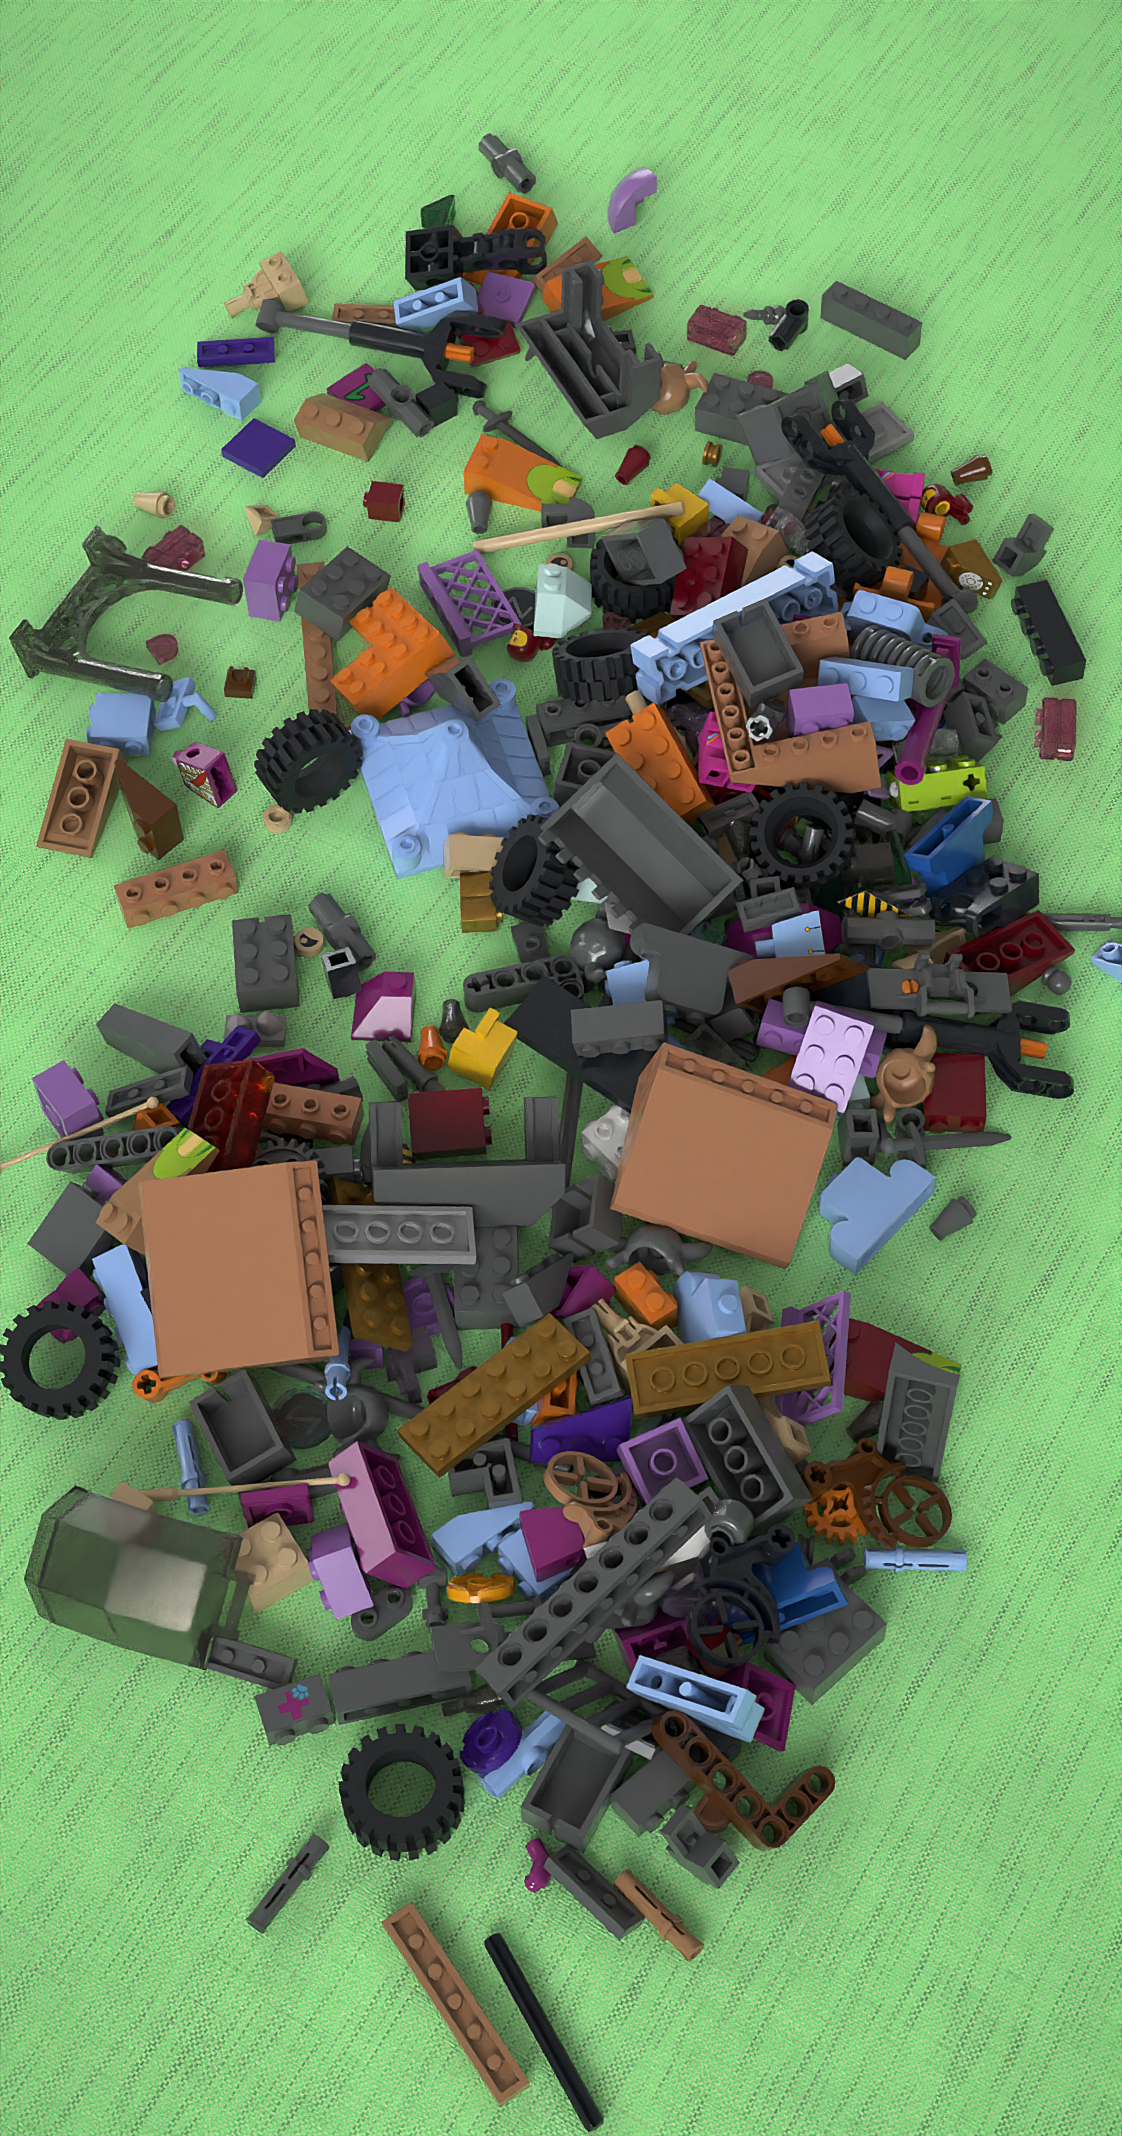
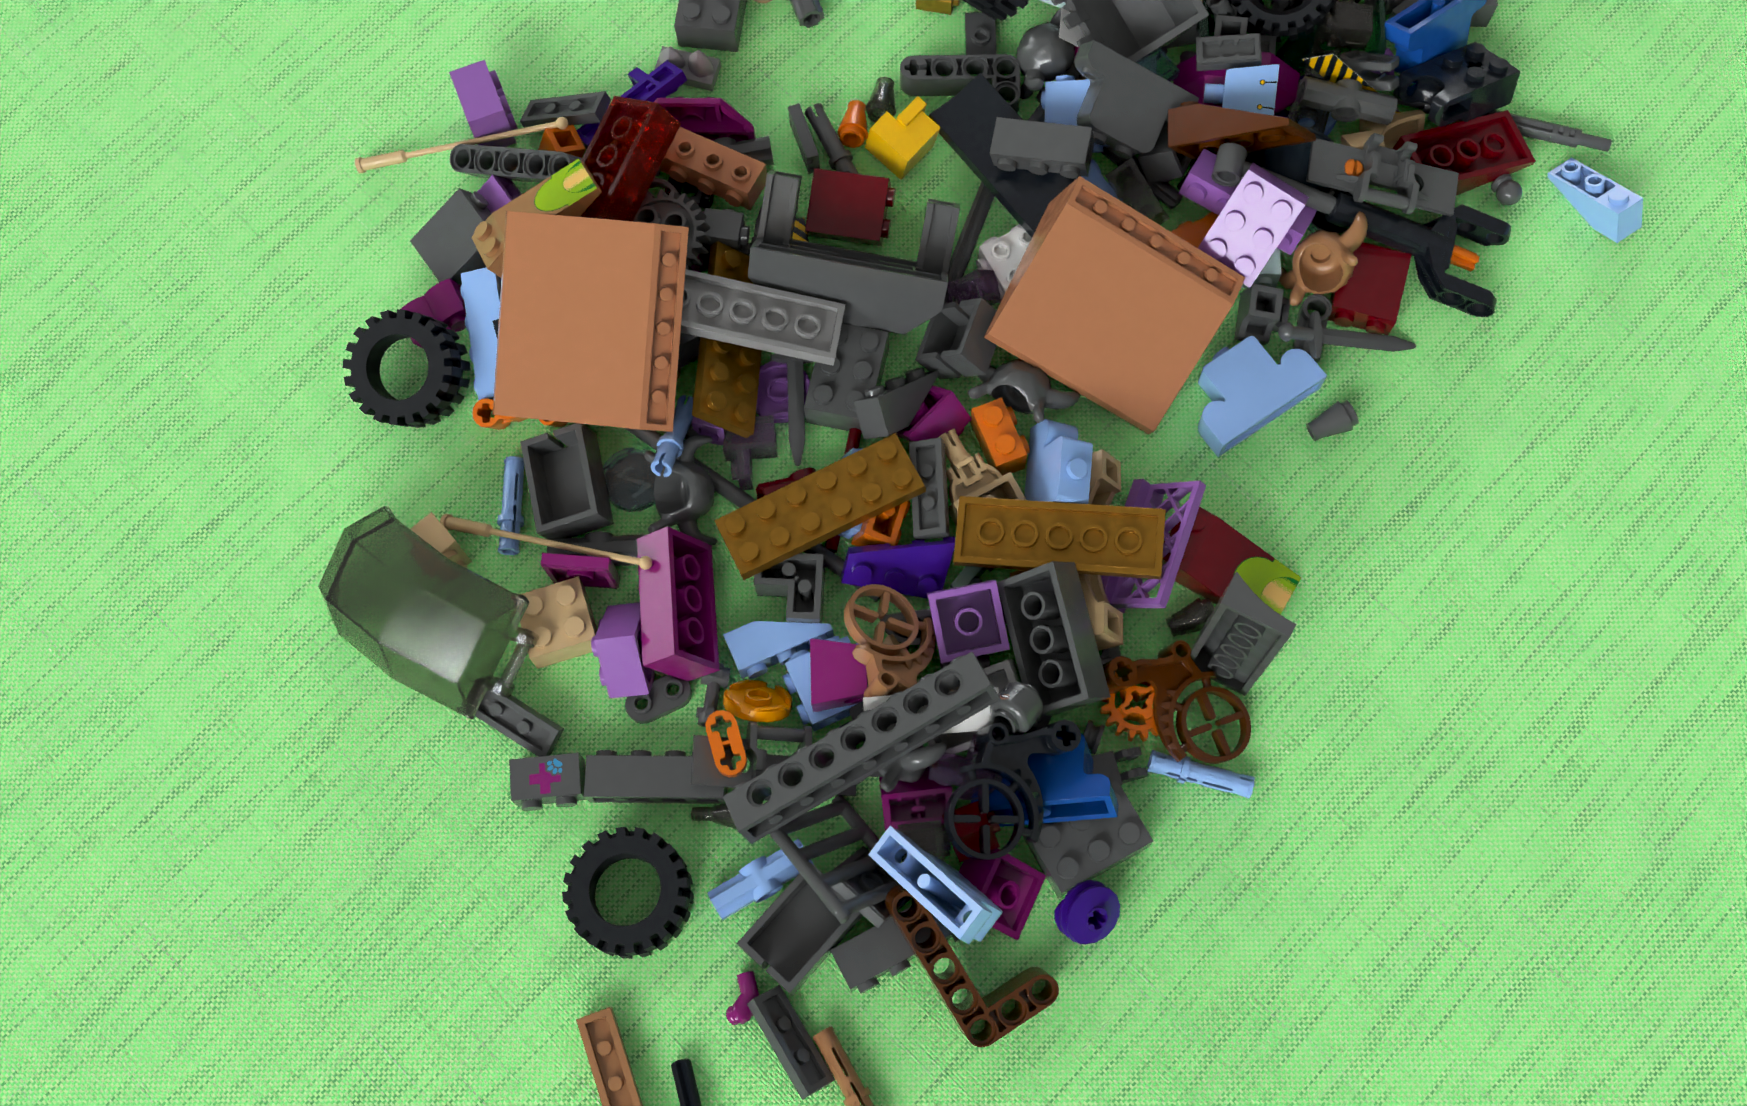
camera: 15 degrees right, 15 degrees up
(150, 1040) = (580, 56): dark grey slope -> none
(296, 1872) = (468, 980): dark grey pin -> none
(341, 973) = (783, 26): black brick -> none
(385, 1008) = (819, 72): magenta slope -> none
(469, 1622) = (734, 741): none -> orange beam
(491, 1741) = (727, 863): dark purple tile -> none
(586, 1166) = (975, 285): none -> clear purple brick
(698, 1850) = (905, 1026): dark grey brick -> none
(710, 1816) = (923, 991): nougat tile -> none
(843, 1704) = (1087, 912): none -> dark purple piece

